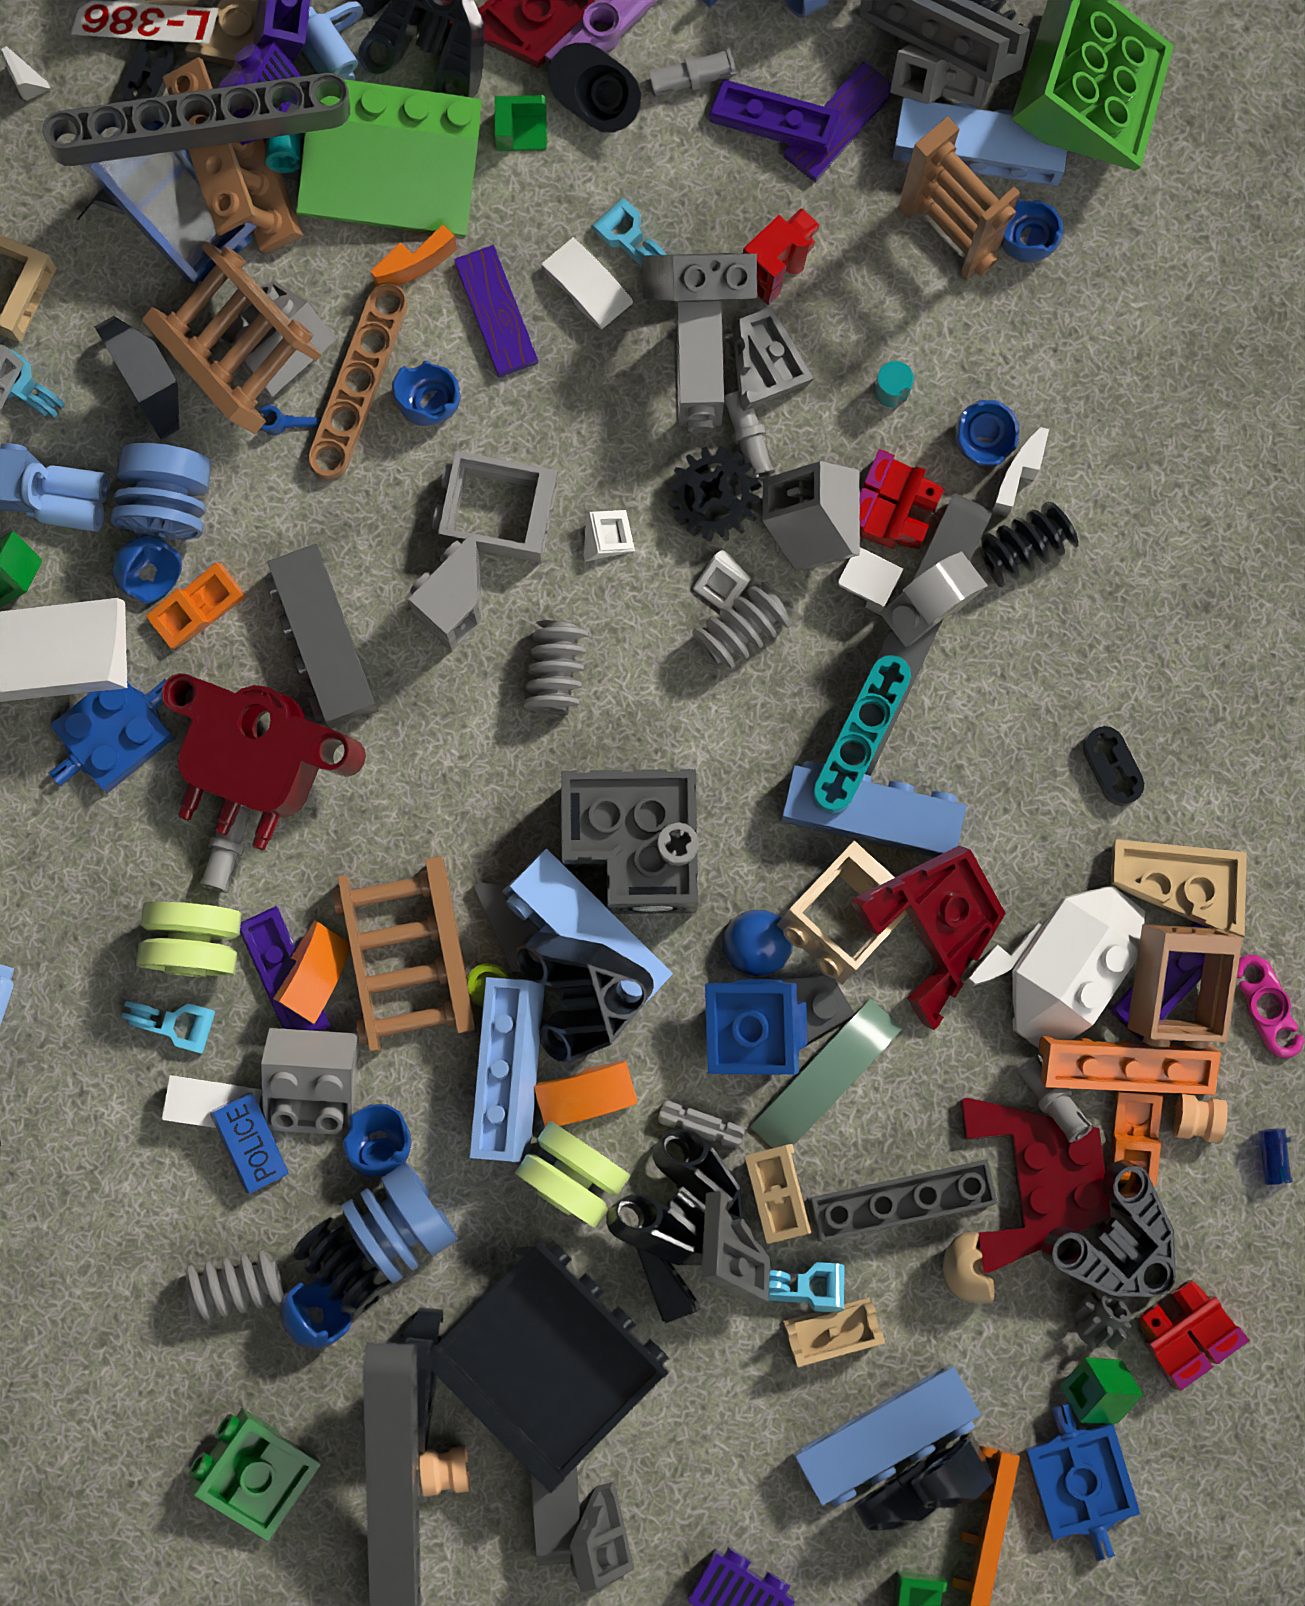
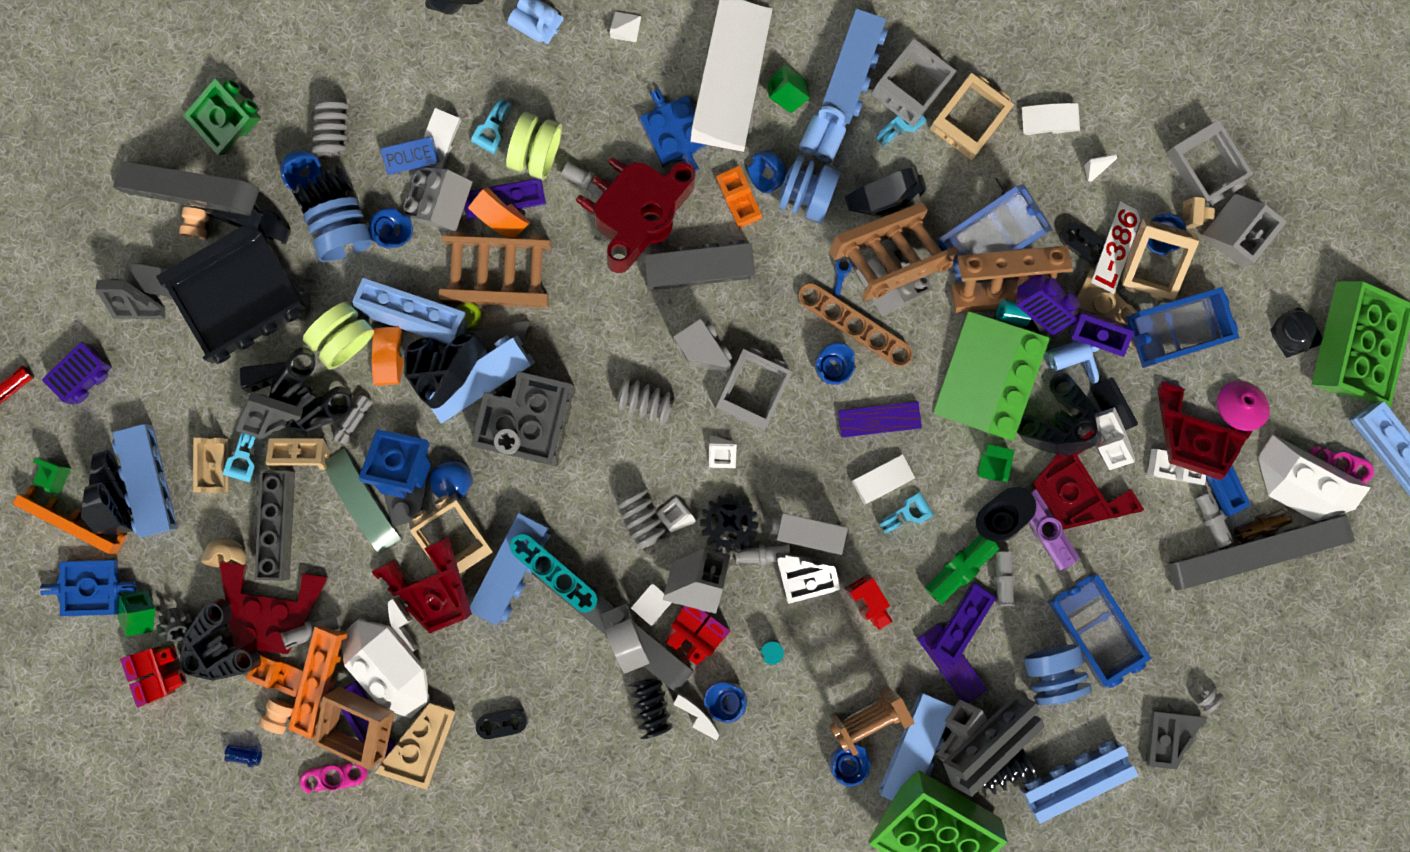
camera: 105 degrees right, 5 degrees up
(178, 109) = (1034, 245): dark grey beam -> none
(403, 266) = (921, 367): orange slope -> none
(693, 138) = (961, 569): none -> green piece
(699, 276) = (859, 554): dark grey window -> none

